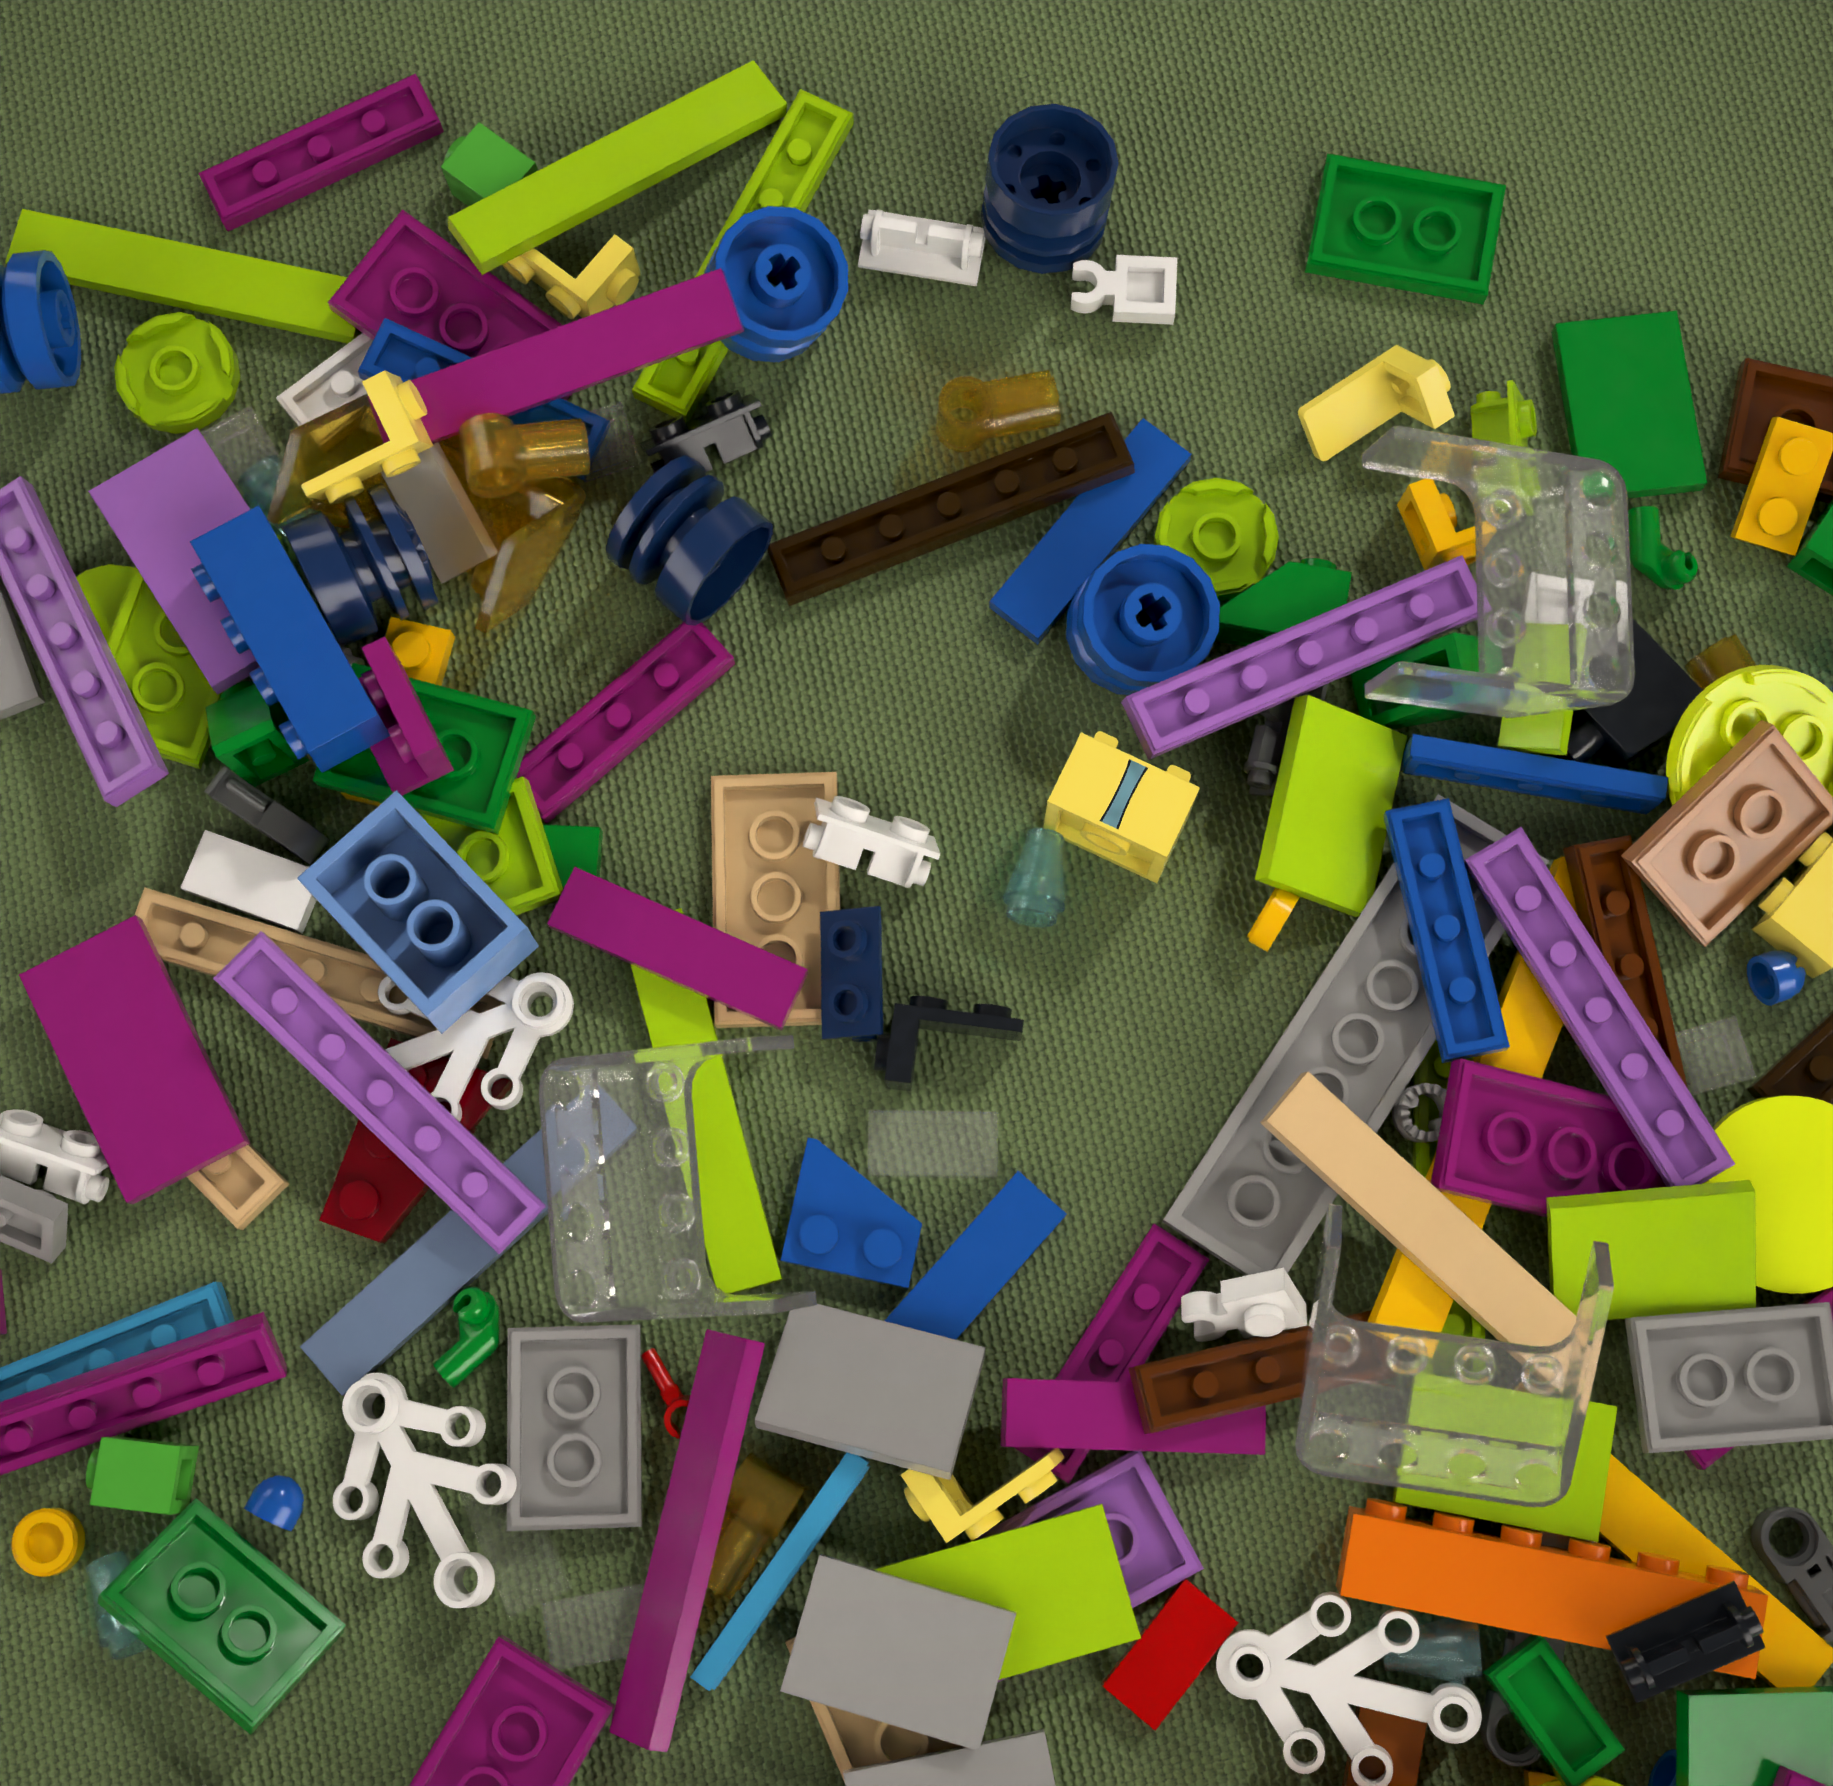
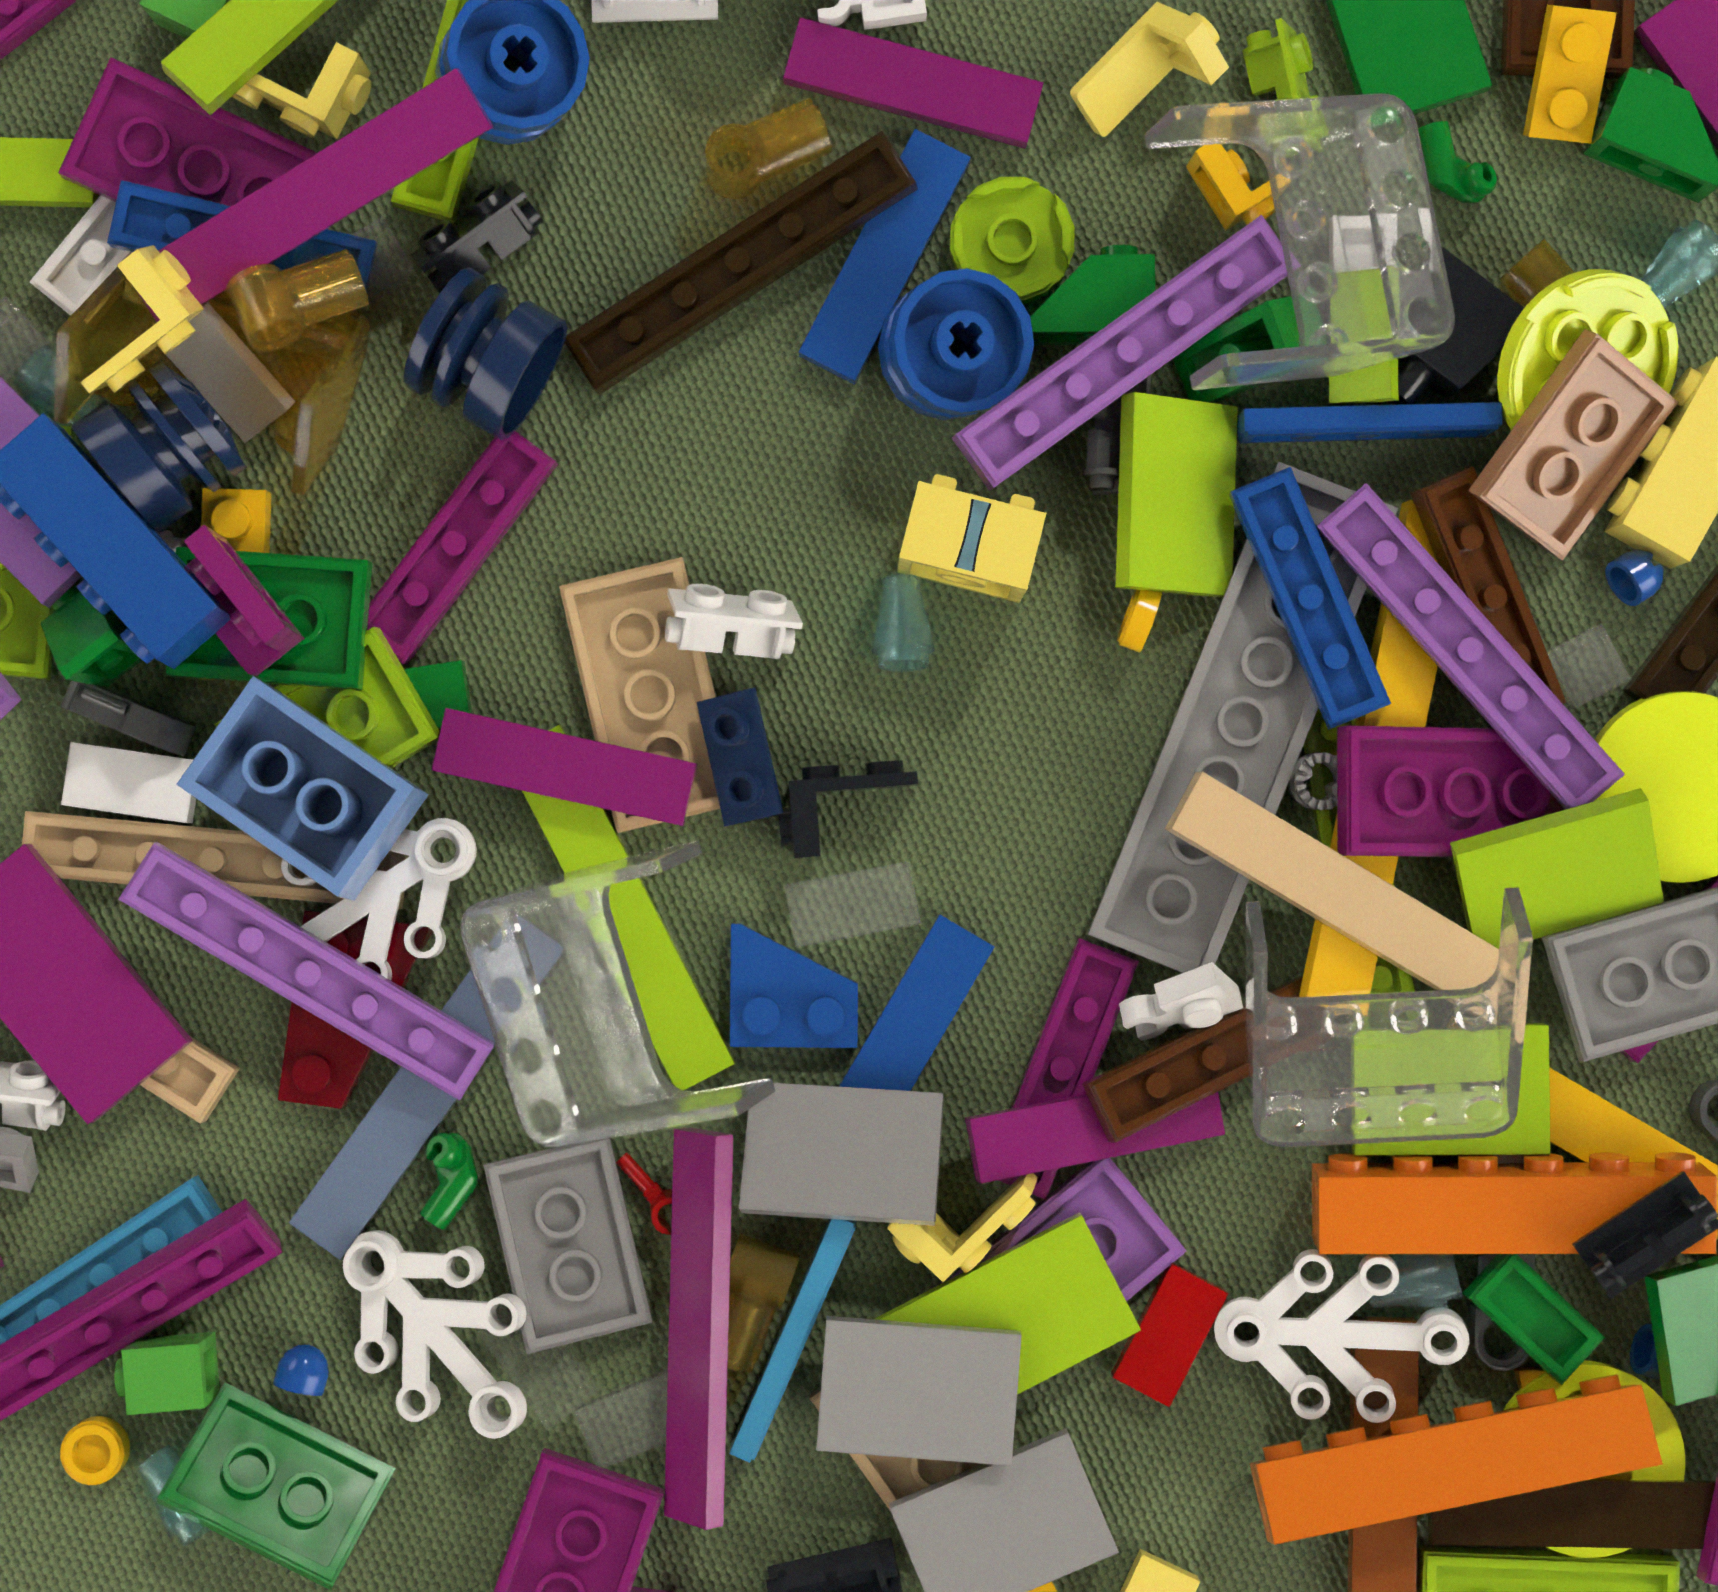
camera: 15 degrees left, 10 degrees up
(1149, 378) = (912, 83): none -> magenta tile

